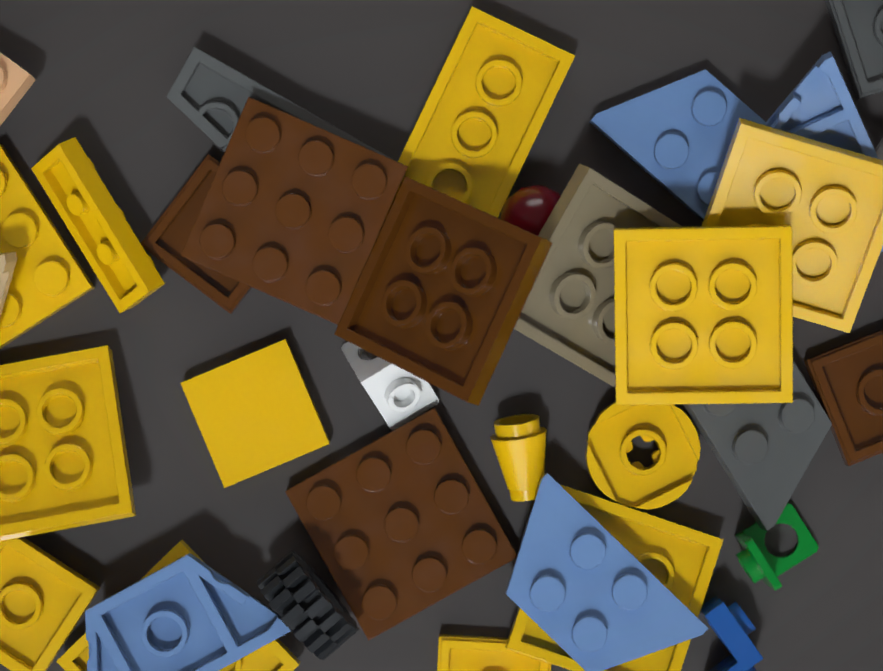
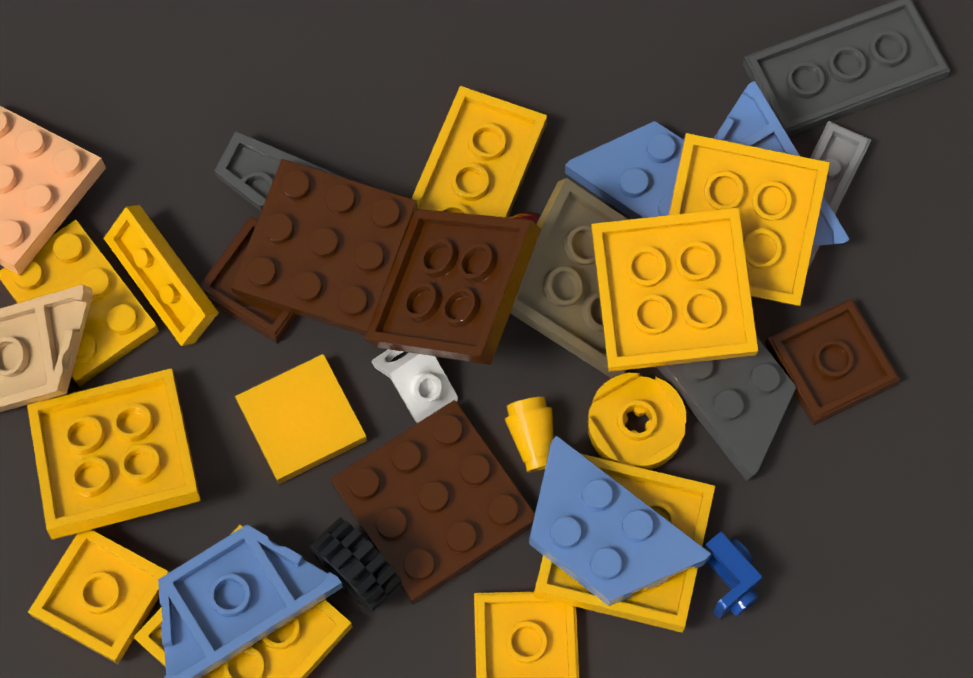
camera: 10 degrees left, 20 degrees down
(763, 565) = (750, 504): green bracket -> none

